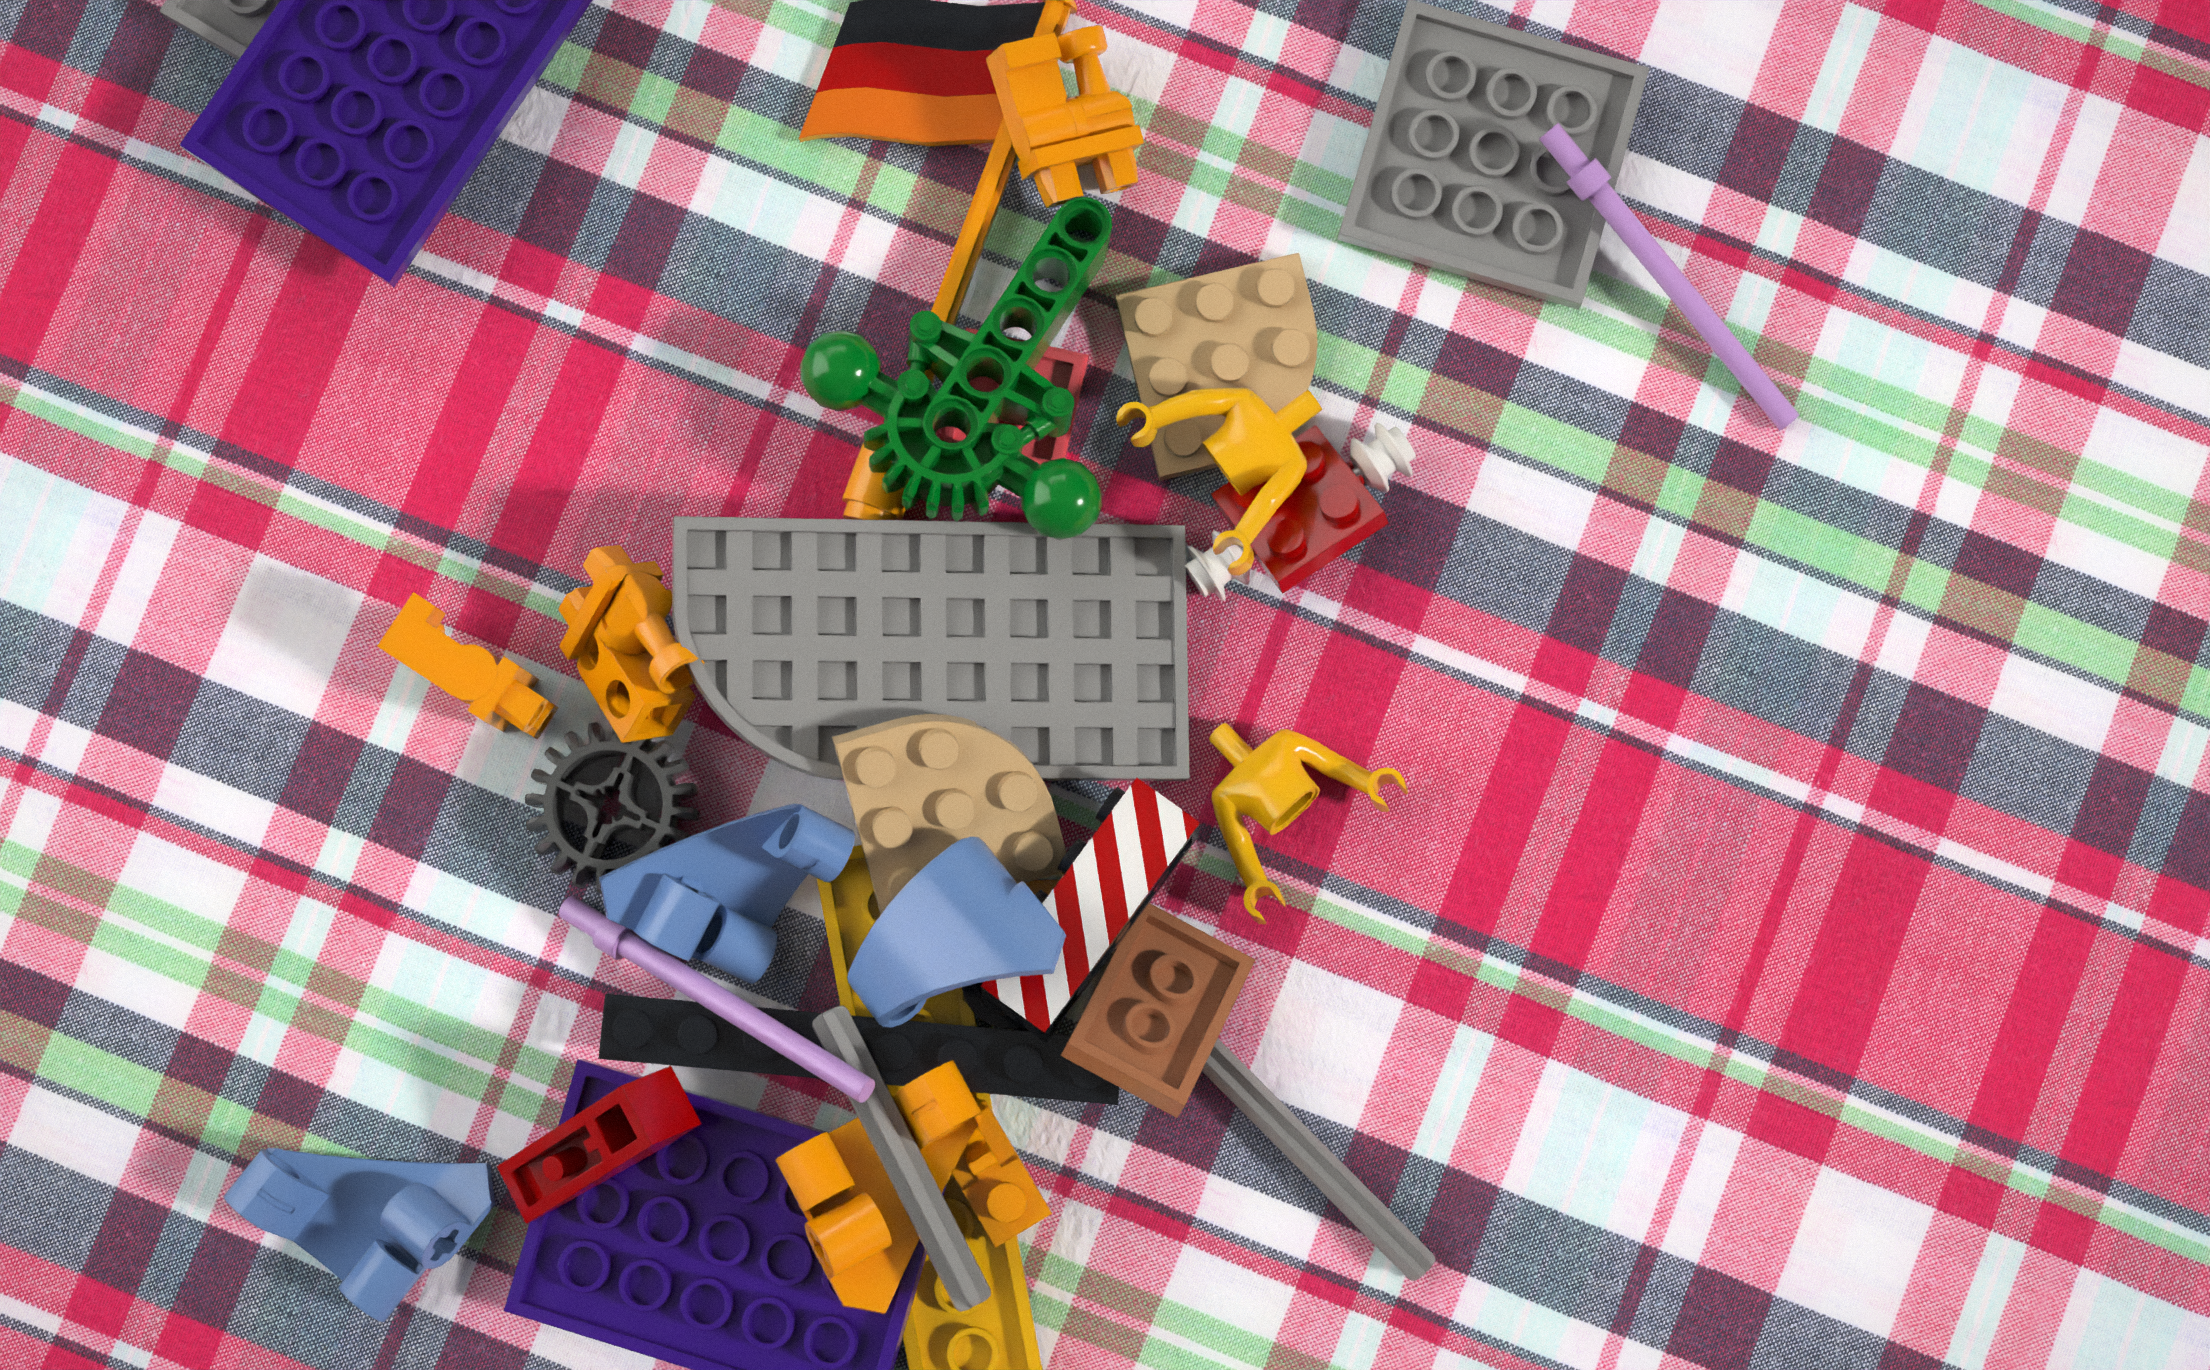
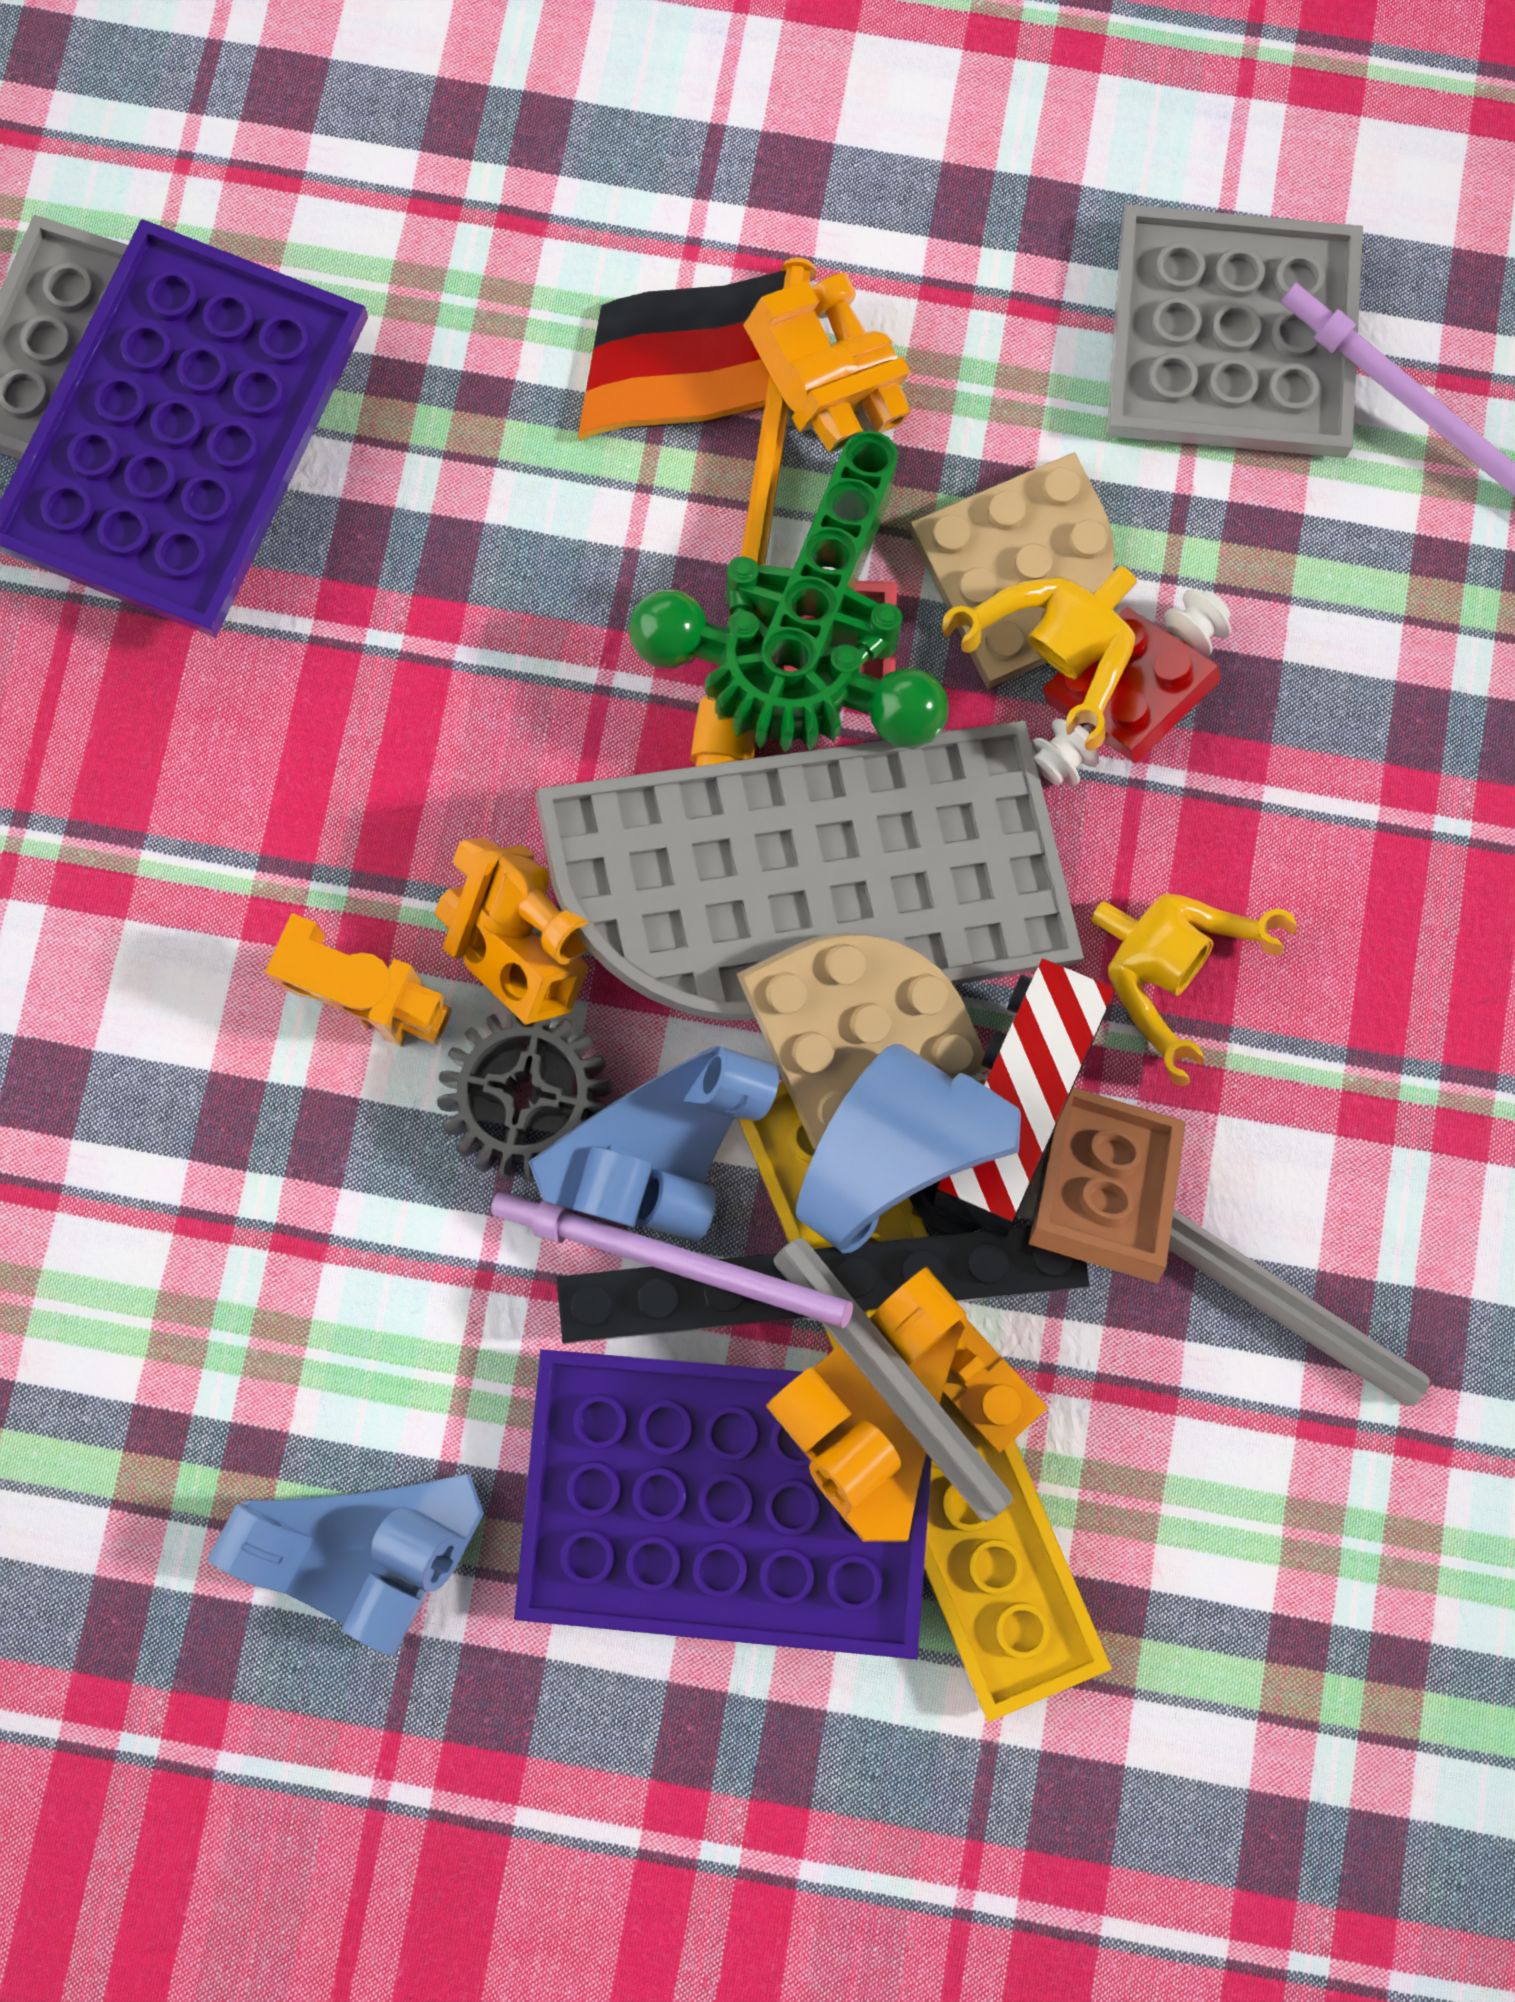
camera: 15 degrees left, 5 degrees down
(599, 1143) = (580, 1427): red slope -> none

